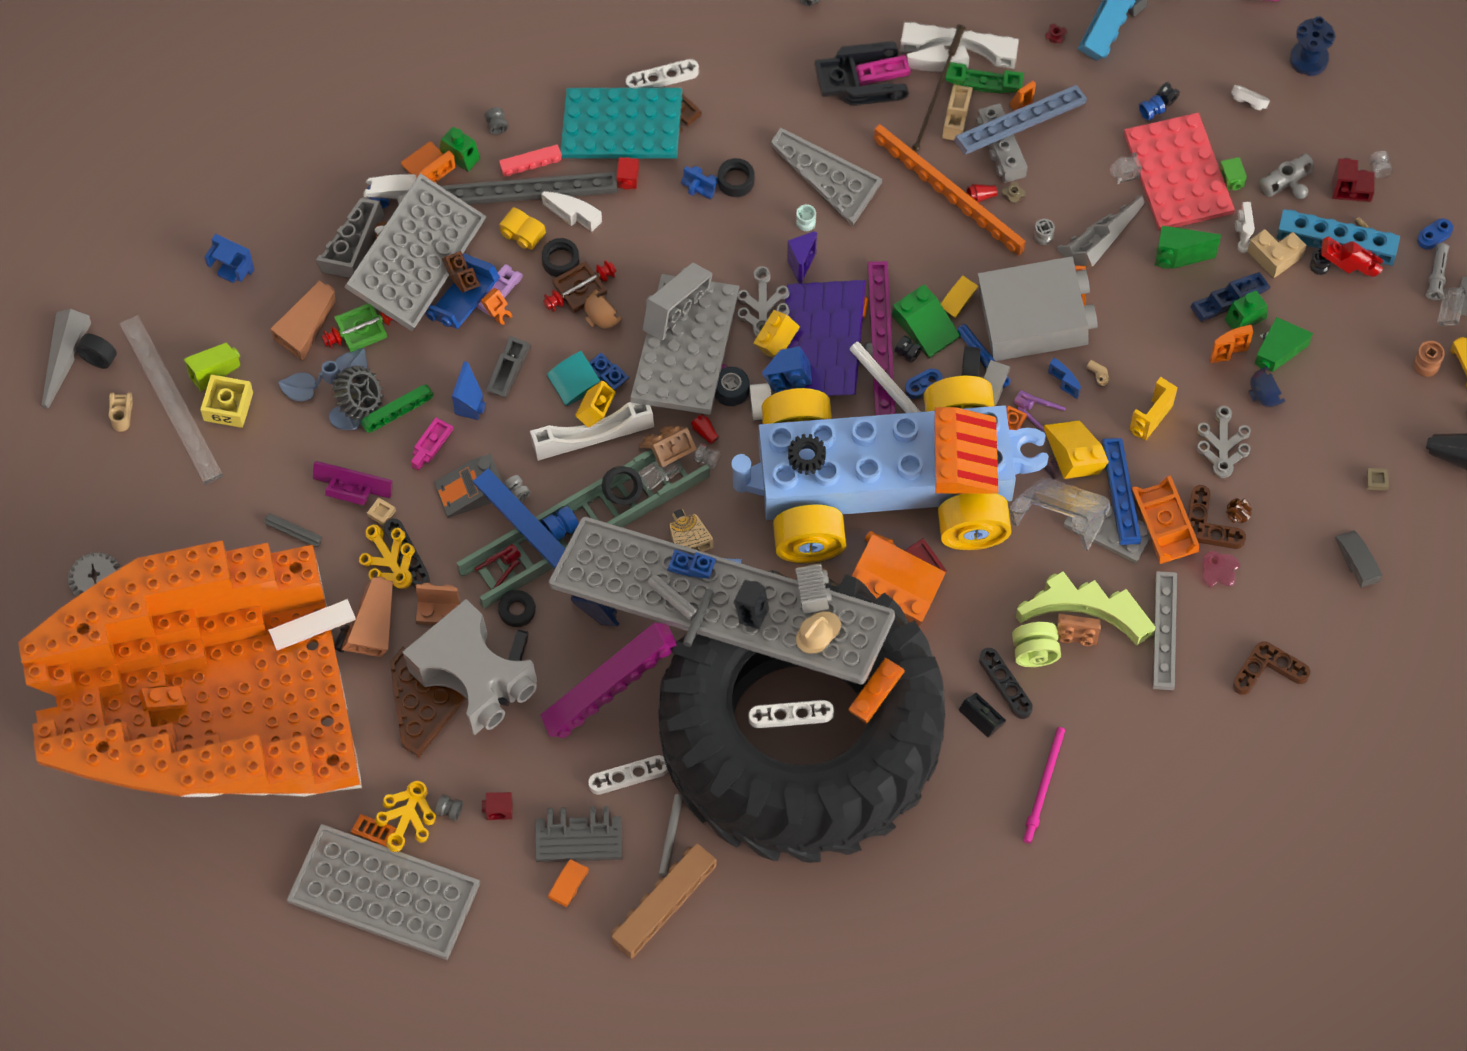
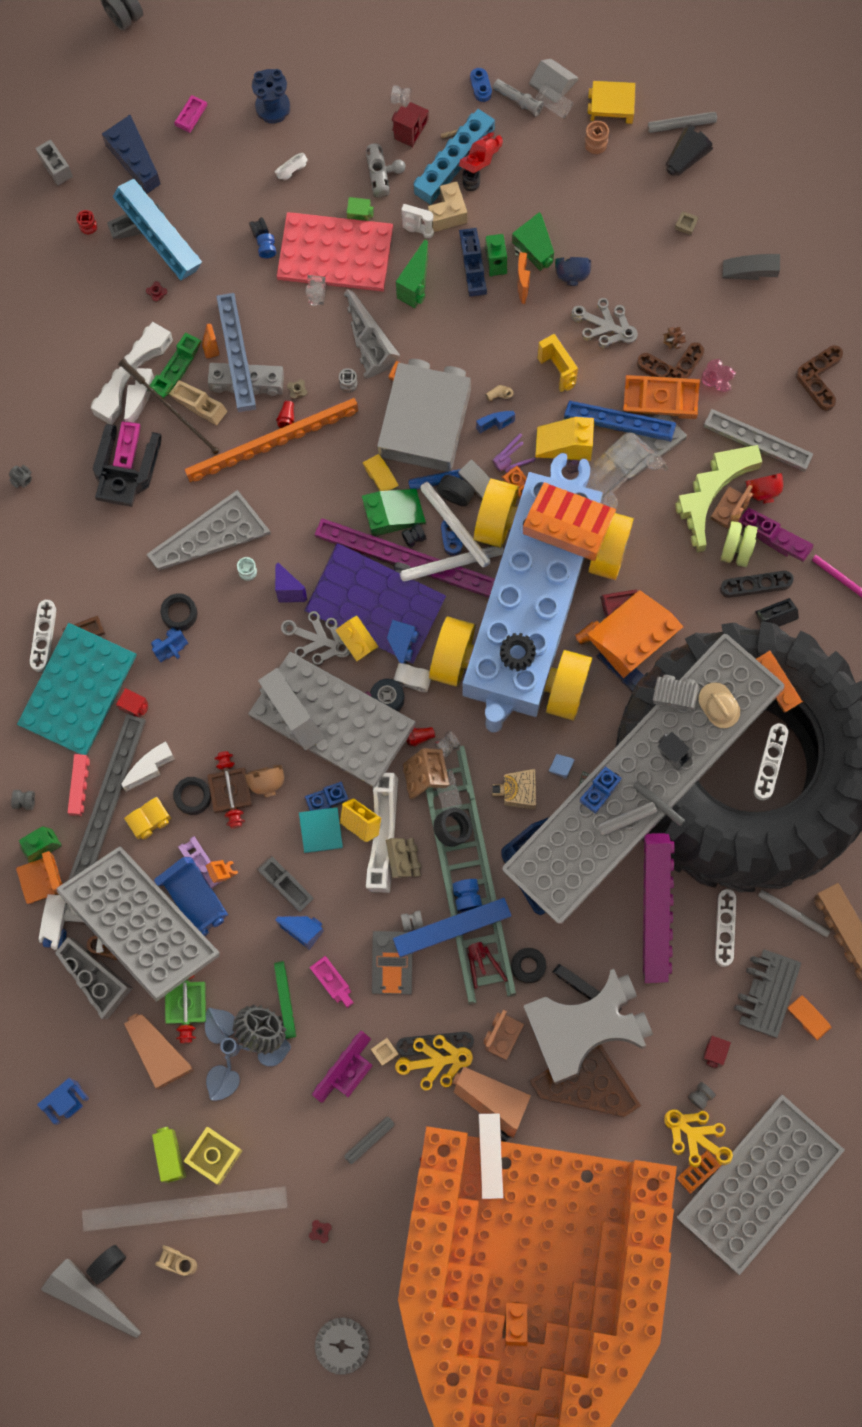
camera: 65 degrees left, 10 degrees up
(196, 523) = (323, 1237): none -> dark red plate
(459, 272) = (173, 891): reddish brown slope -> none
(571, 452) = (399, 860): none -> dark tan plate
(938, 373) = (455, 524): none -> white axle
(1066, 679) = (776, 537): none -> magenta slope
(1112, 652) = (766, 487): none -> red cylinder

